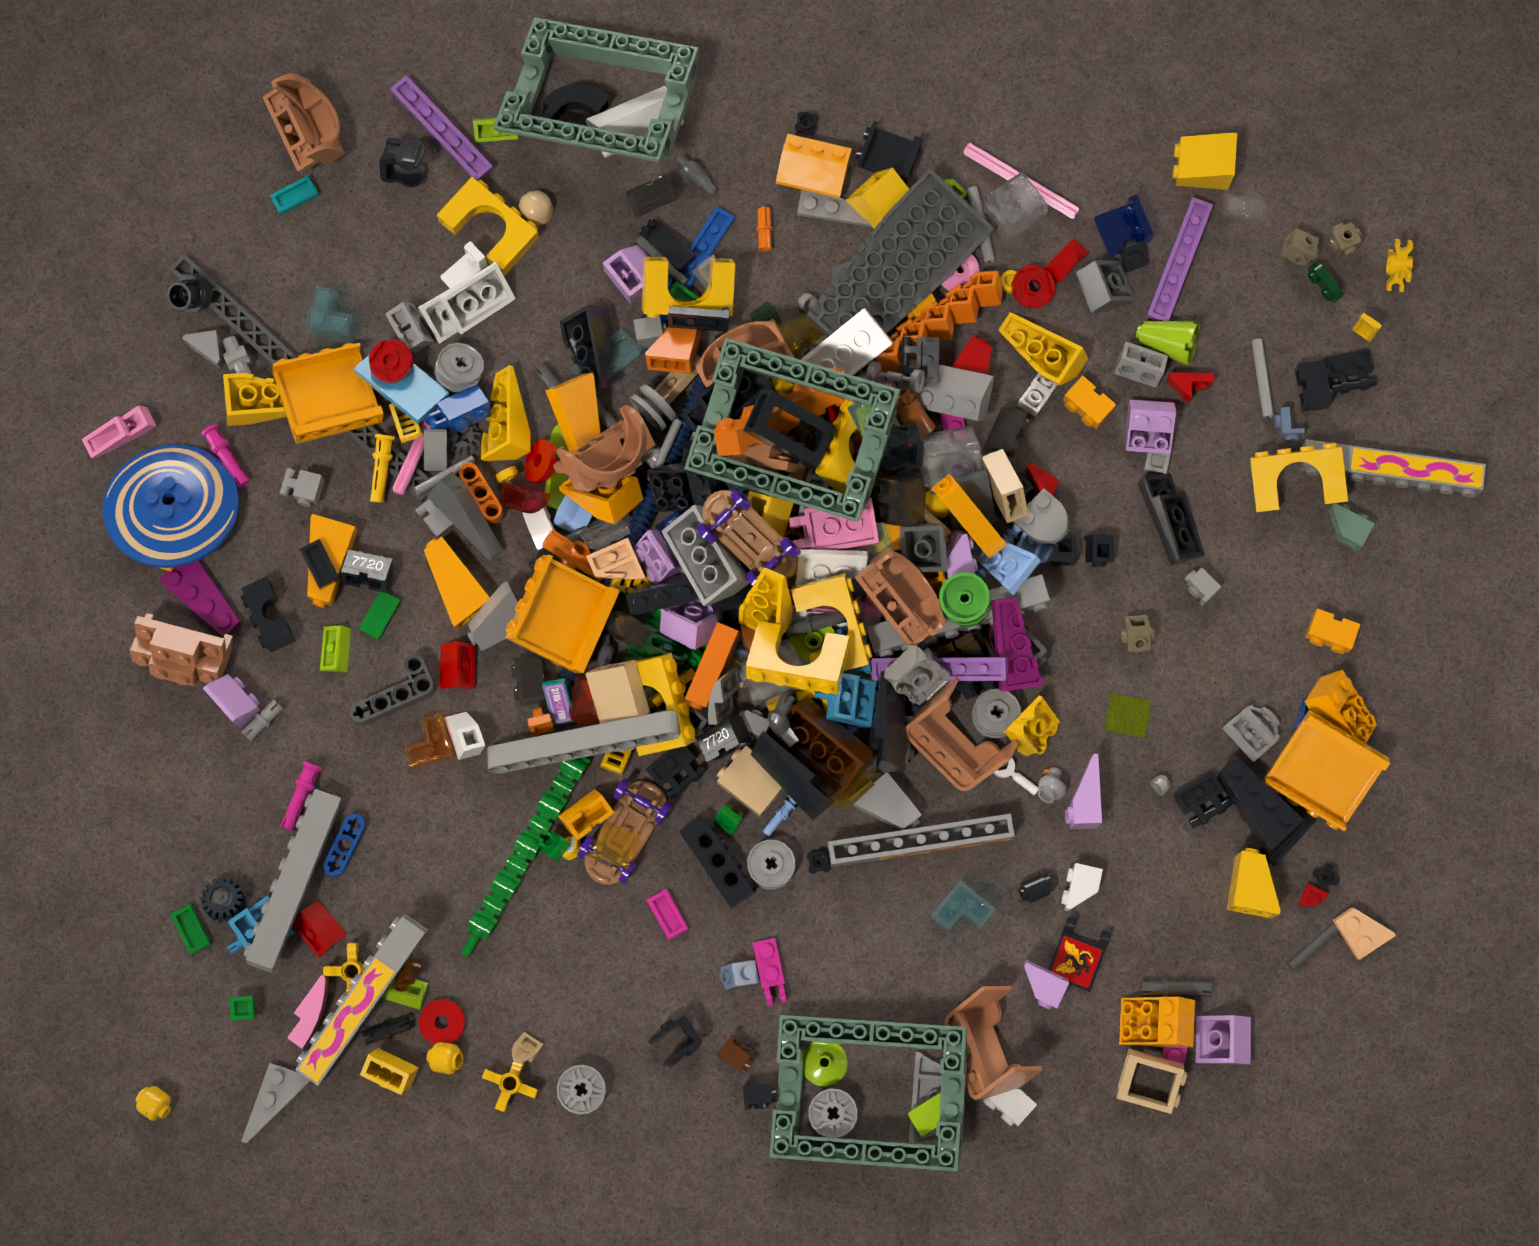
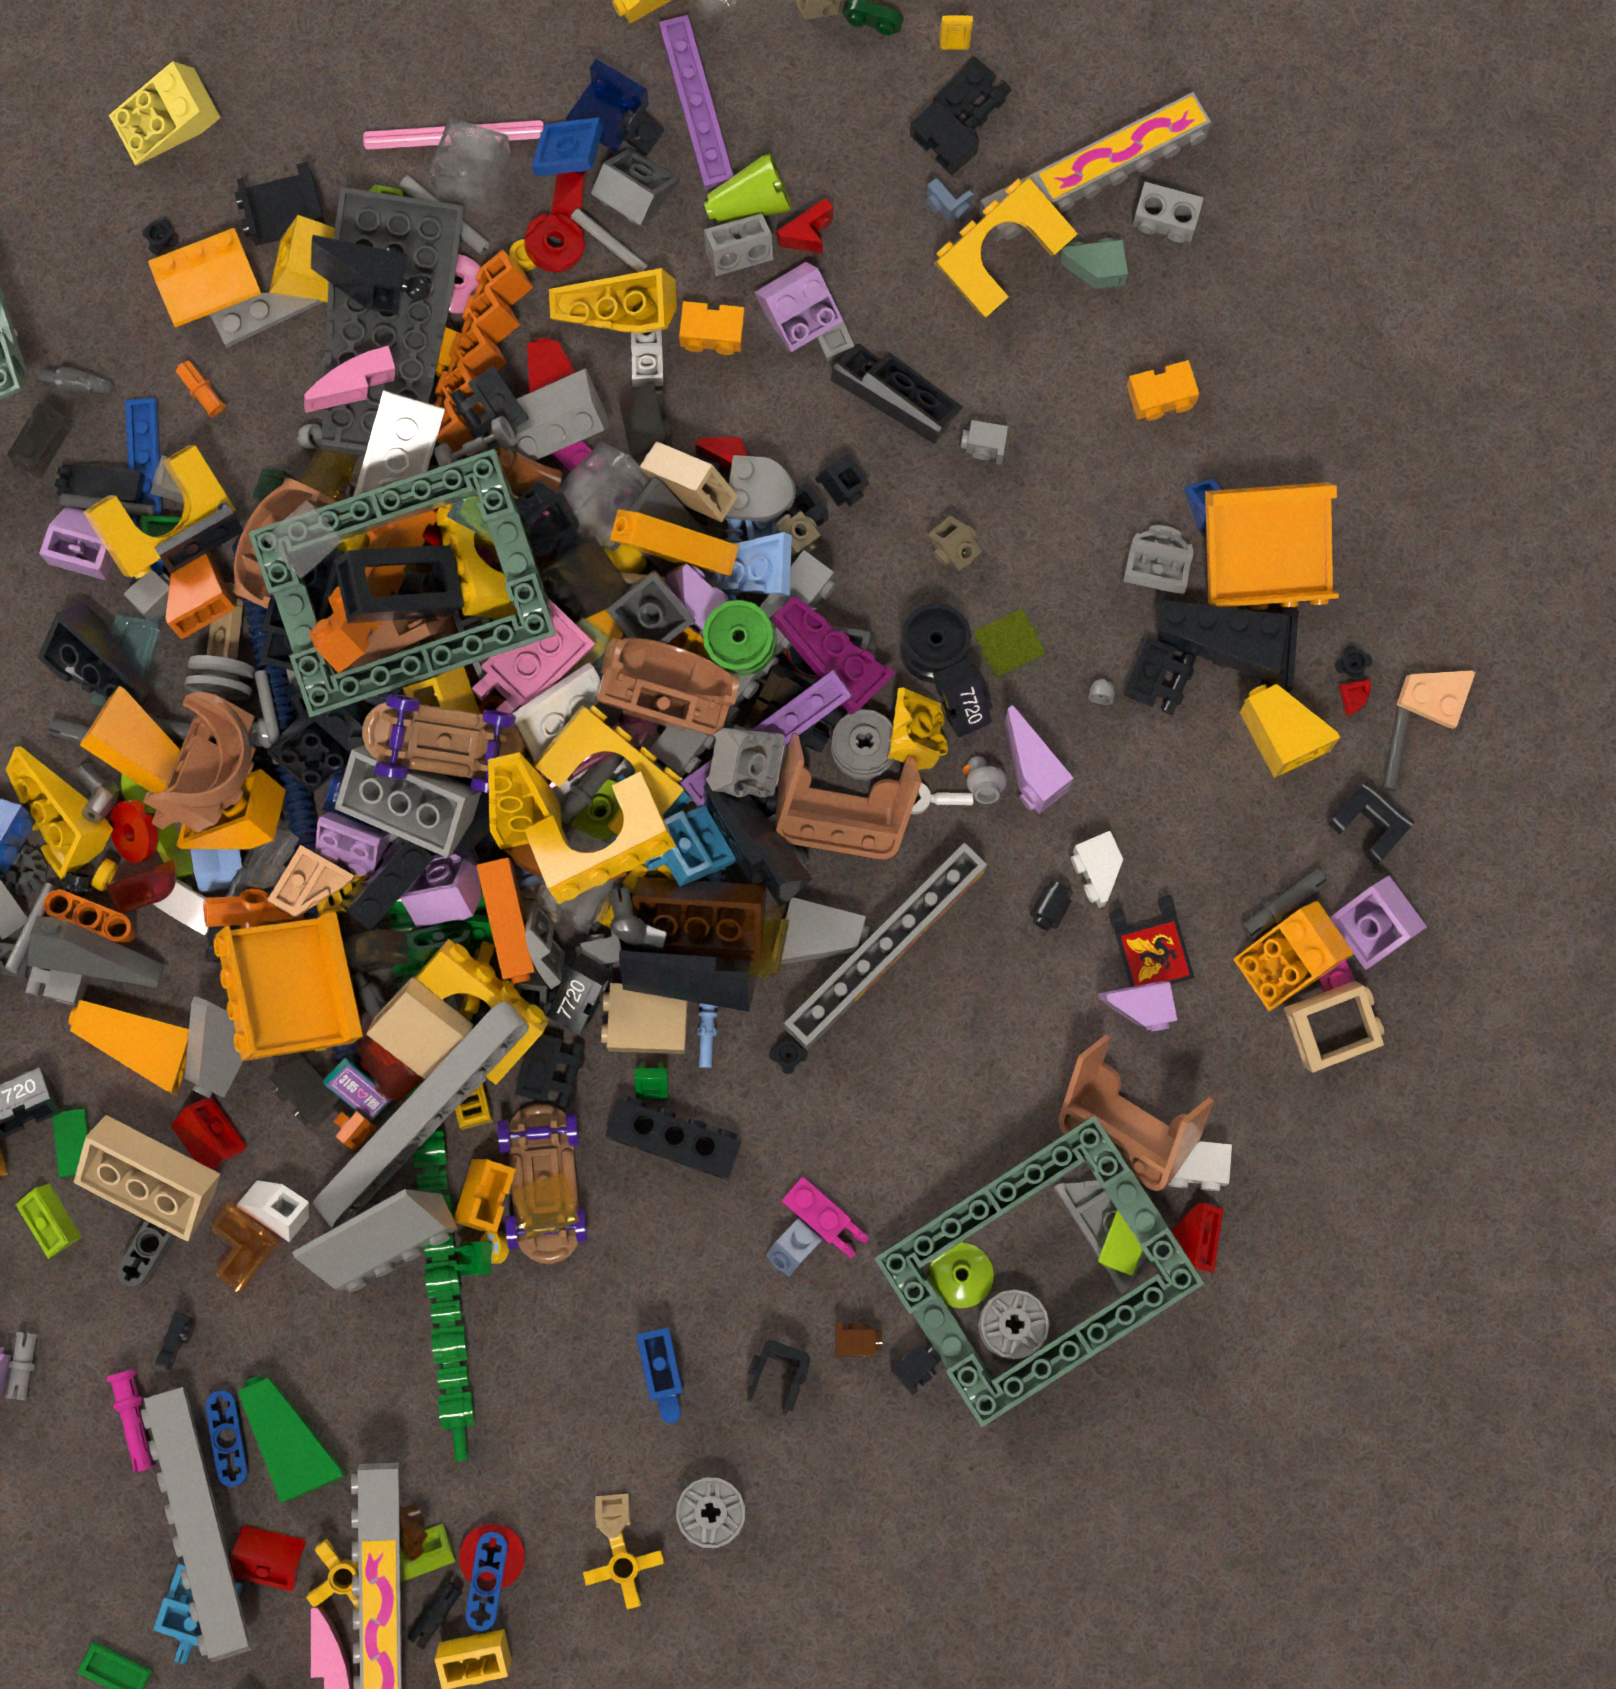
camera: 40 degrees left, 0 degrees up
(222, 900) = (128, 1609): black wheel -> none
(359, 766) = (179, 1332): none -> black plate
(375, 875) = (288, 1444): none -> green slope
(405, 664) = (146, 1177): none -> tan slope
(419, 1032) = (491, 1608): none -> blue beam
(445, 1058) = (526, 1595): yellow head -> none
(488, 468) = (77, 883): none -> black plate
(508, 795) = (378, 1239): none -> light grey slope
(539, 427) = (103, 793): none -> flat silver arm
(612, 989) = (661, 1372): none -> blue brick
(667, 914) = (661, 1240): dark pink tile -> none
(753, 364) = (304, 539): none -> clear piece
(757, 865) = (751, 1084): light grey wheel -> none
(850, 288) = (351, 380): none -> bright pink slope
(861, 51) = (164, 113): none -> light yellow slope
(906, 232) = (367, 273): none -> black slope
(962, 902) = (982, 981): clear light blue brick -> none
(979, 1143) = (1200, 1235): none -> red slope
(1053, 565) = (803, 532): none -> dark tan brick
(1065, 305) = (609, 241): none -> light grey bar
(1072, 693) = (924, 629): none -> black wheel
(1073, 728) = (965, 702): none -> black brick
(1082, 235) = (567, 147): none -> blue plate
(1262, 378) = (882, 168): light grey piece -> none
(1274, 976) = (1381, 813): none -> black connector
(1341, 705) = (1228, 462): light orange slope -> none
(1420, 522) = (1169, 204): none -> light grey brick

